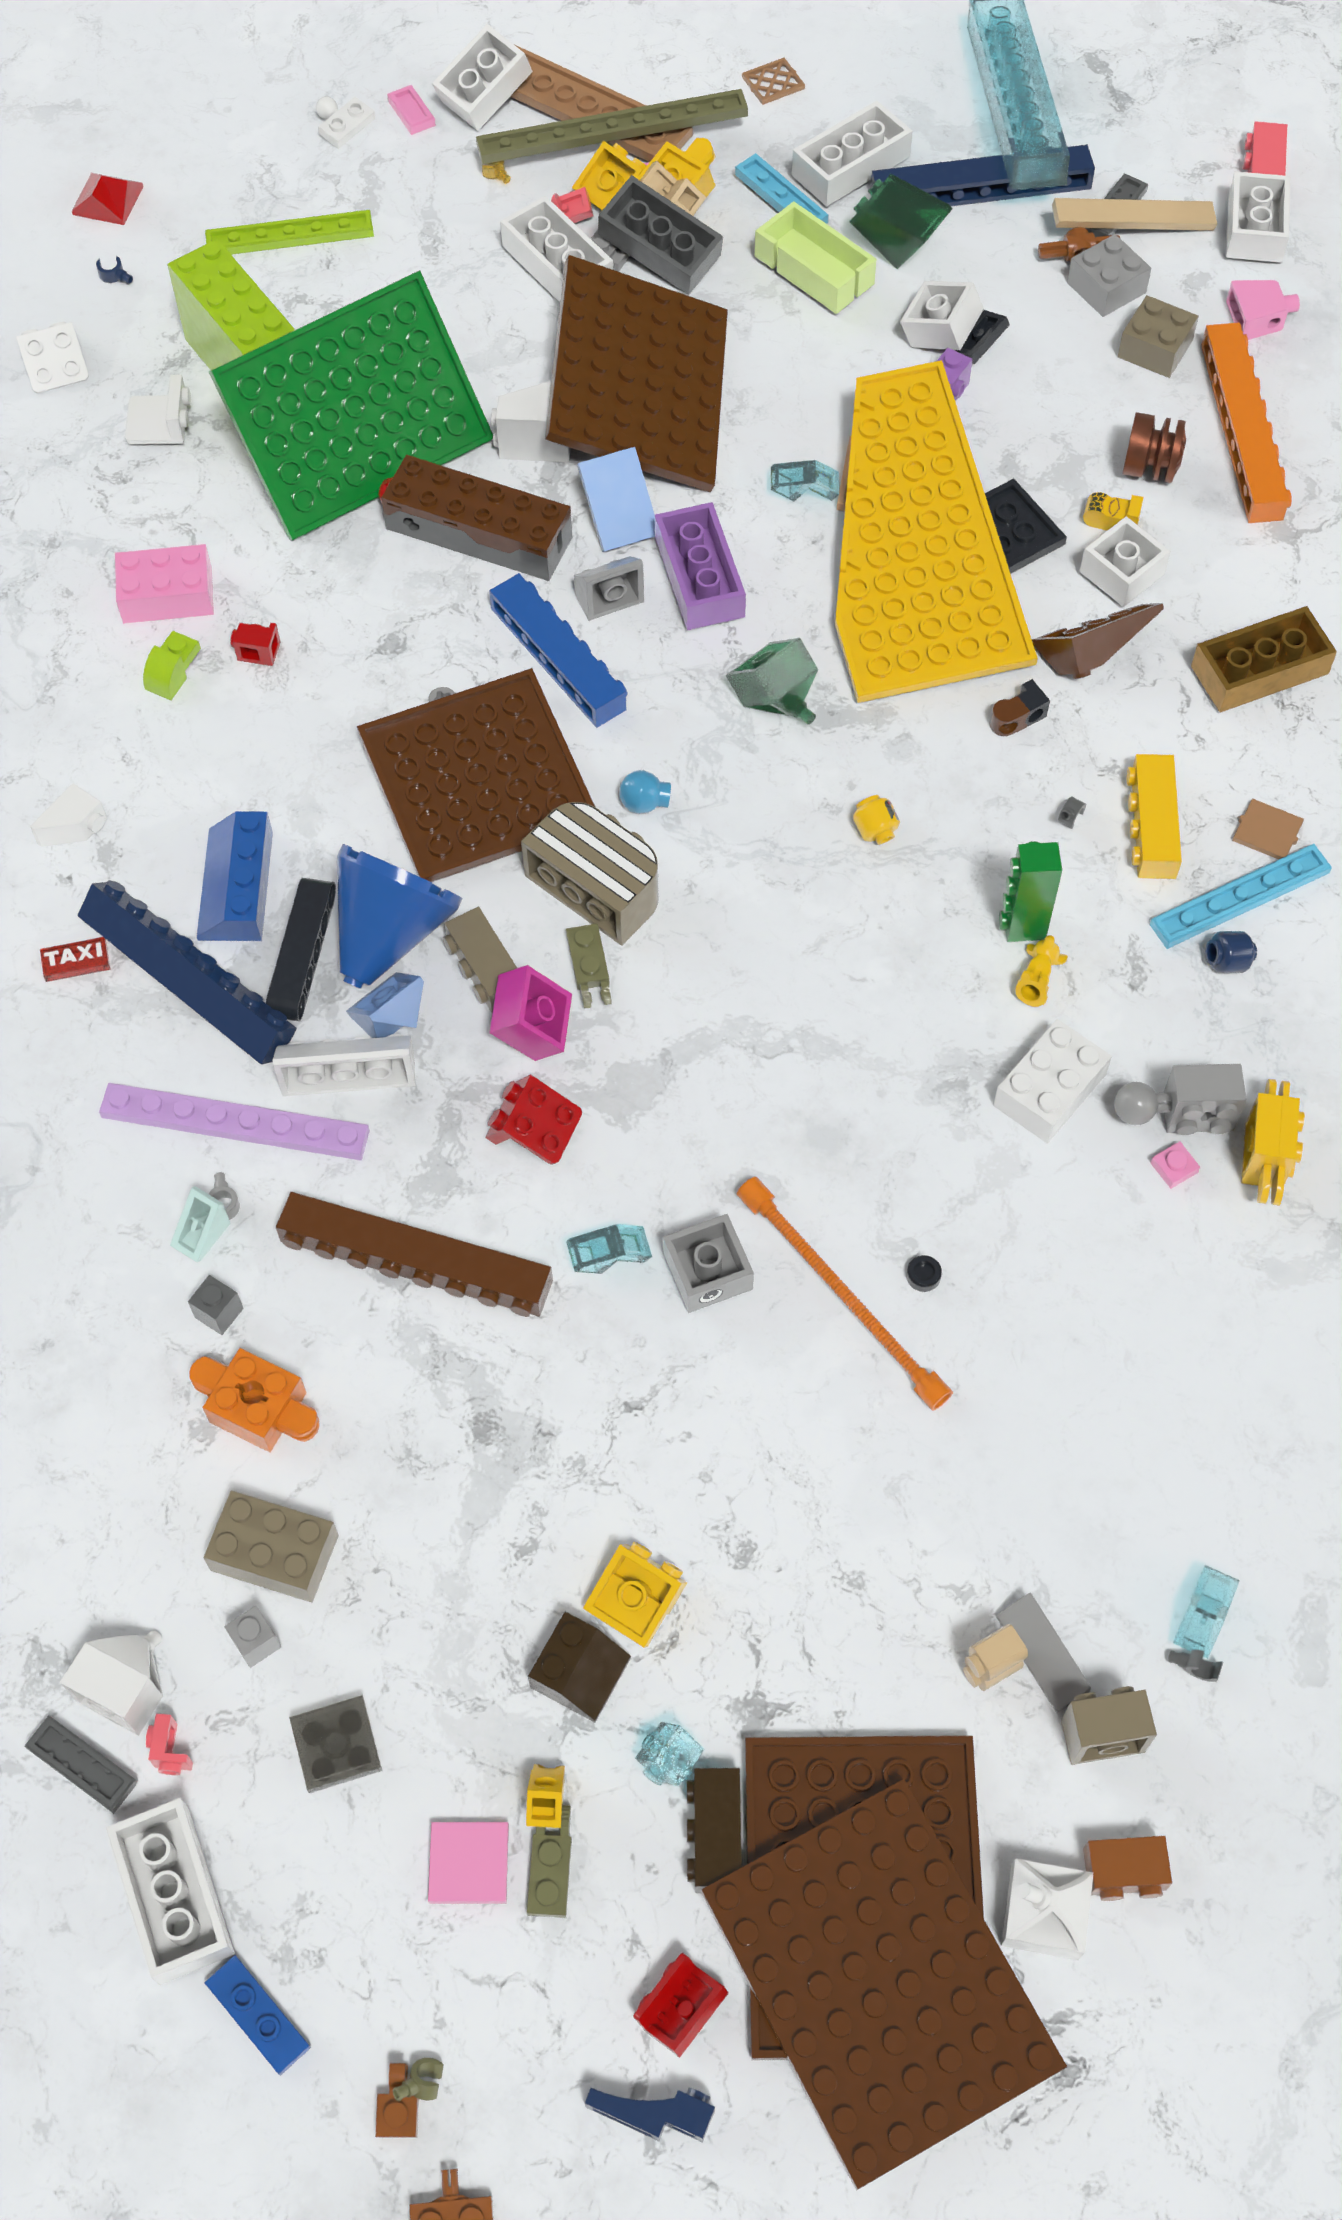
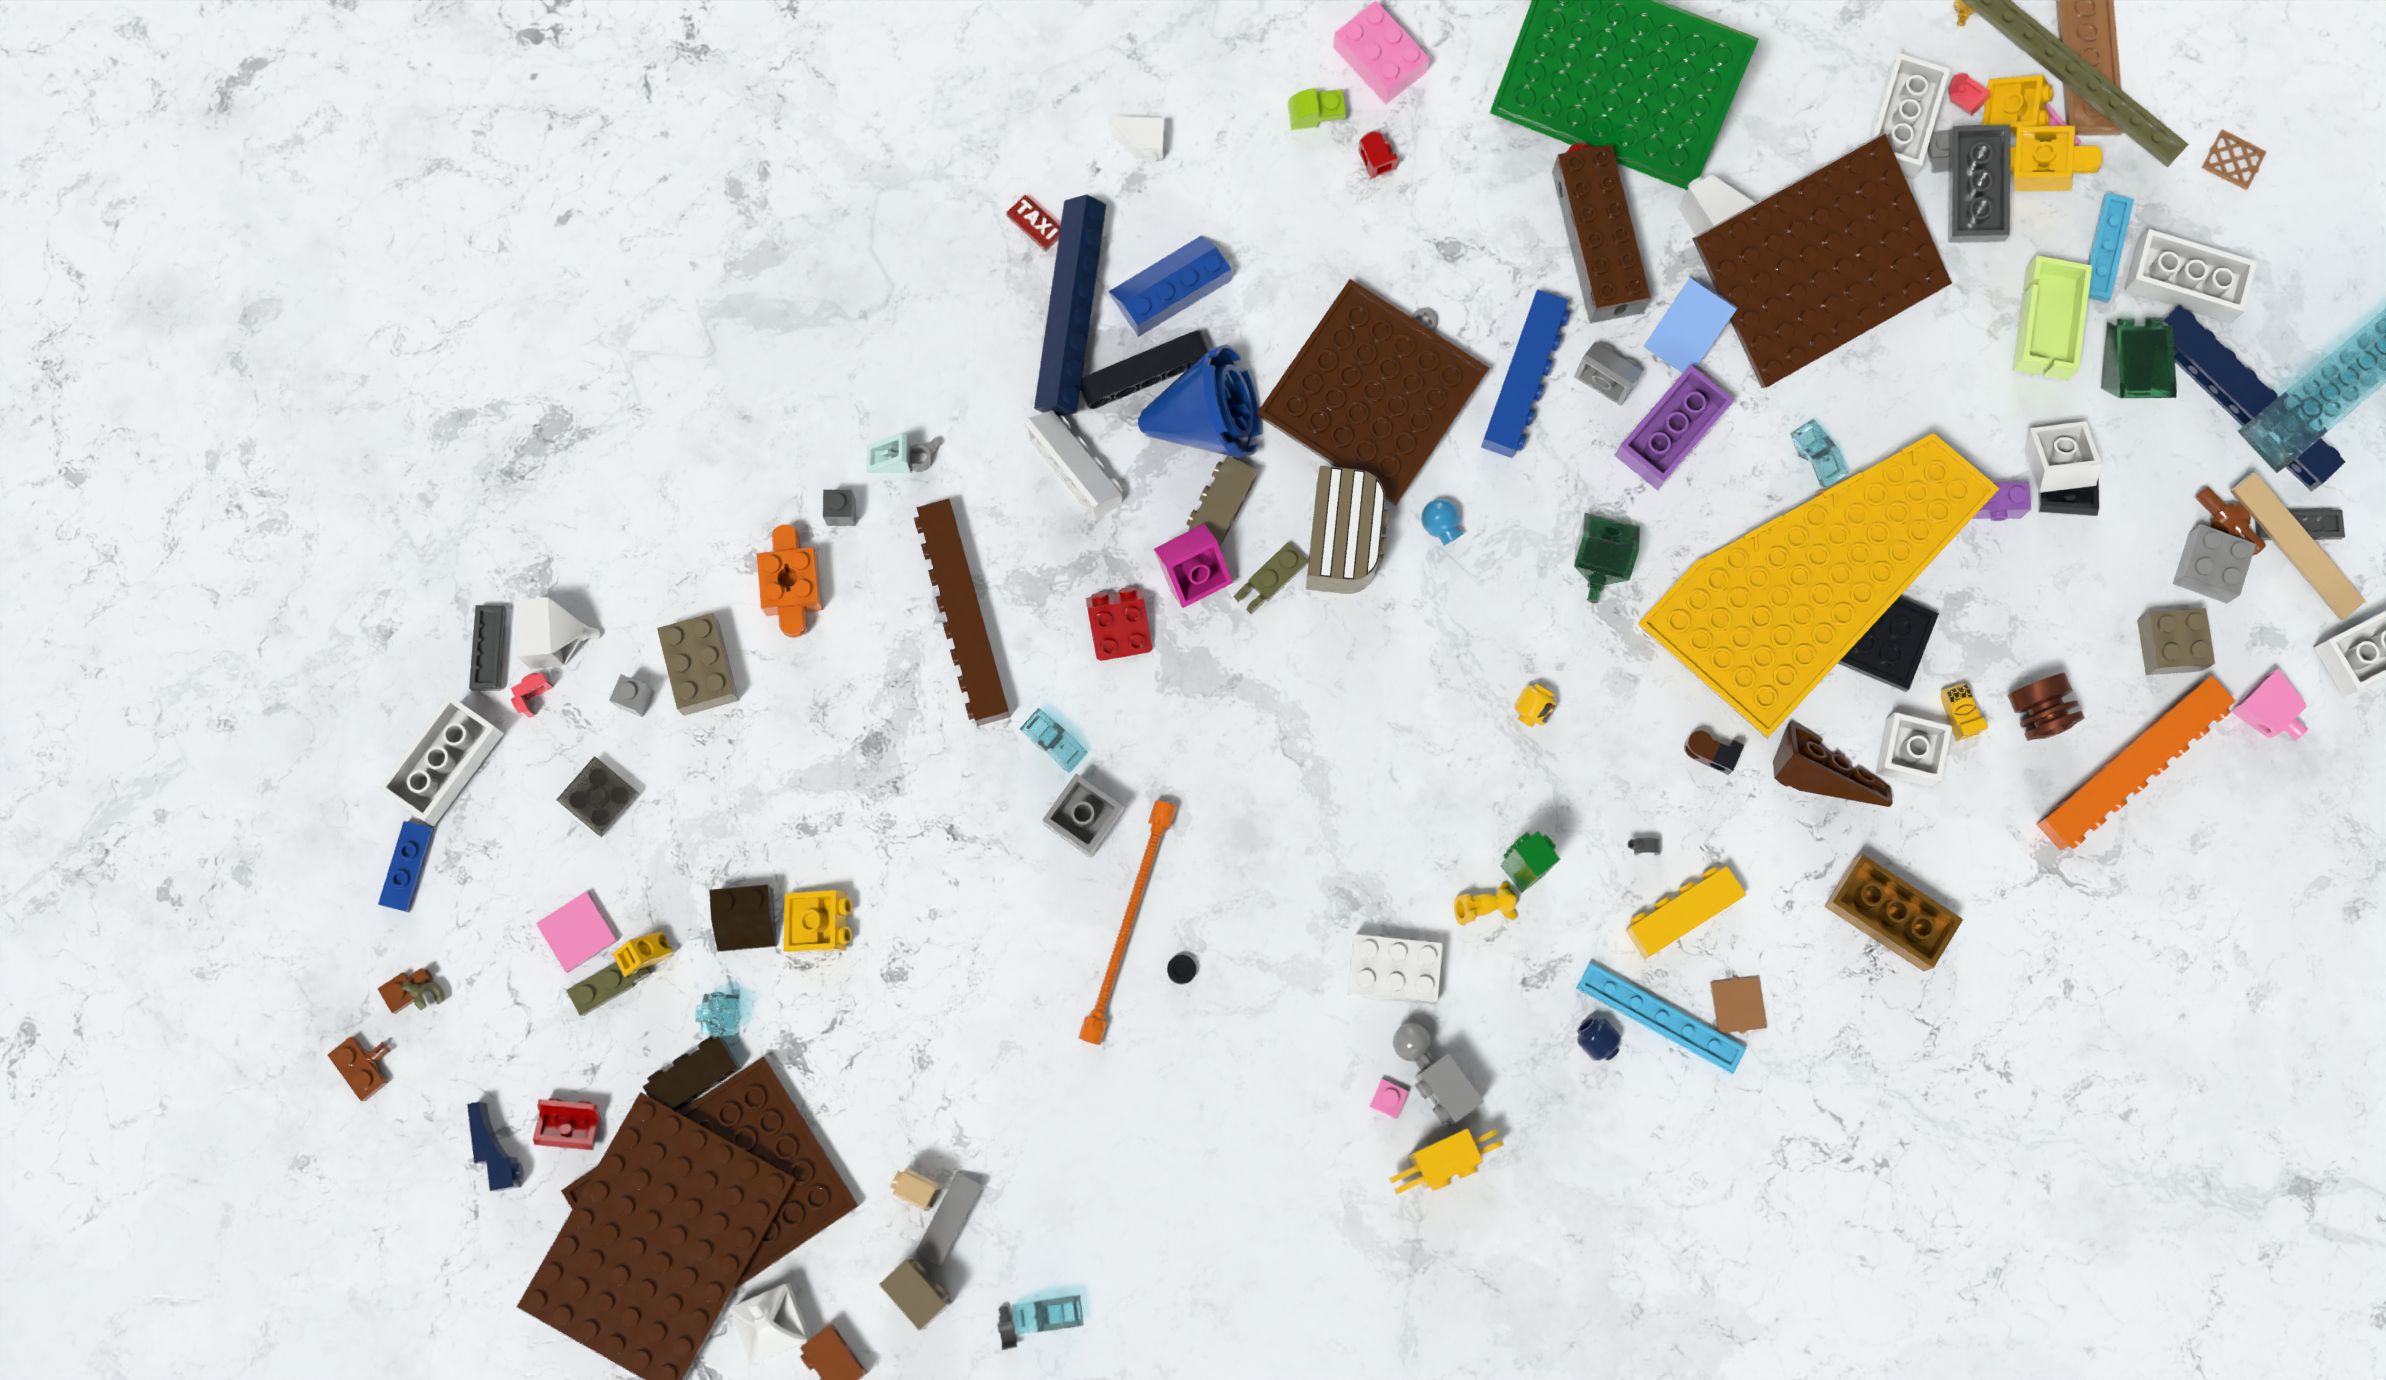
camera: 55 degrees right, 15 degrees up
(234, 1121) = (985, 421): lavender plate -> none
(389, 1006) = (1139, 461): medium blue slope -> none
(679, 192) = (2024, 164): tan slope -> none

